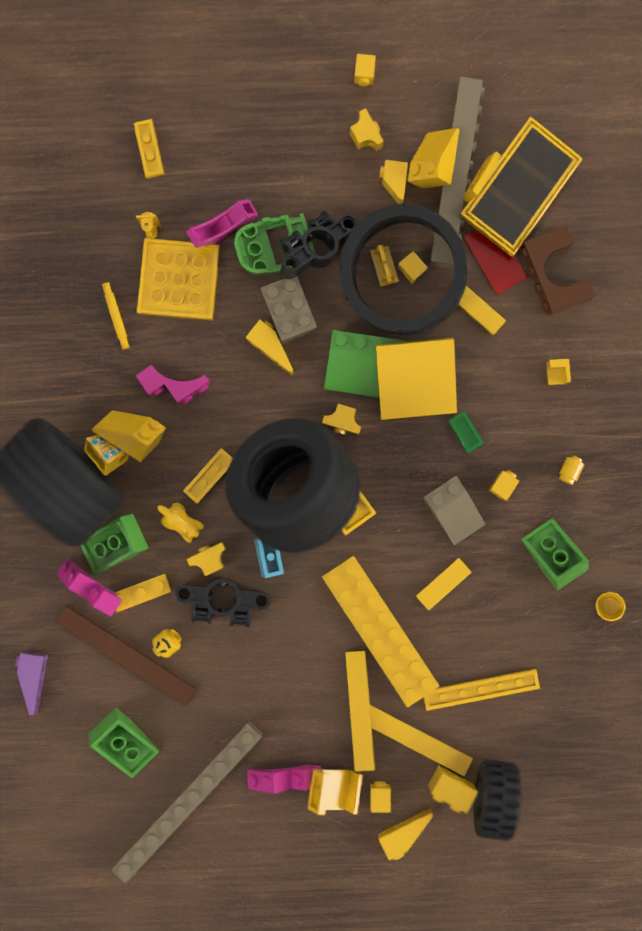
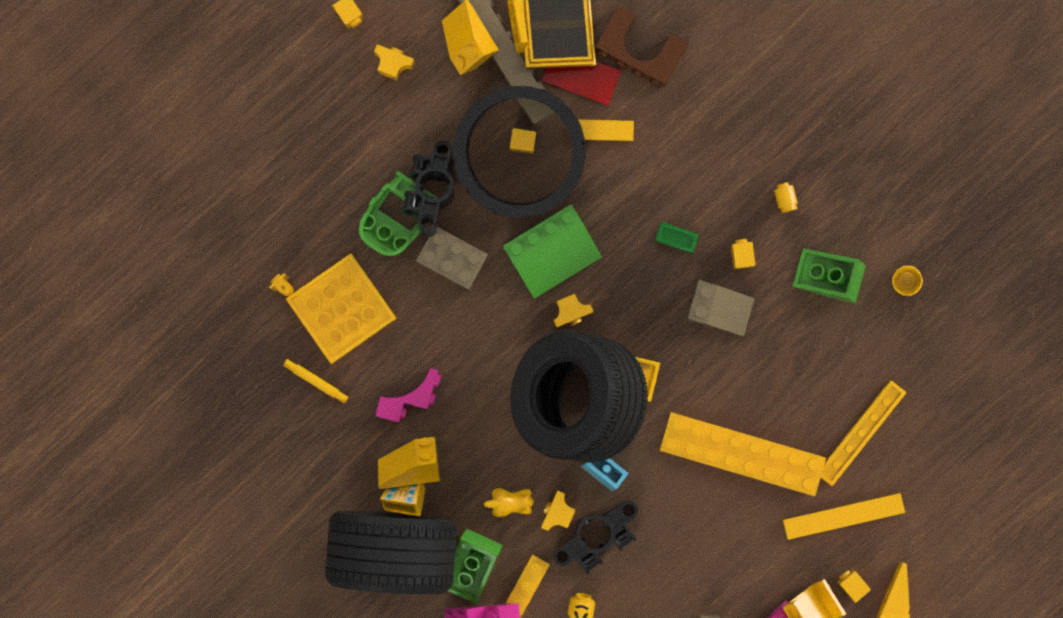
camera: 40 degrees left, 0 degrees up
(148, 148) = (226, 222): yellow tile -> none
(208, 476) = (501, 446): yellow plate -> none
(221, 226) = (342, 233): dark pink arch -> none
(266, 340) = (458, 299): yellow slope -> none
(360, 711) = (780, 530): yellow tile -> none
(384, 265) = (498, 158): yellow hinge -> none
(394, 178) = (448, 81): yellow slope -> none
(416, 378) = (602, 228): yellow tile -> none
(443, 584) = (761, 374): yellow tile -> none
(452, 789) = (904, 530): yellow brick -> none
(497, 800) = (944, 508): black tyre -> none
(558, 372) = (710, 127): yellow panel -> none

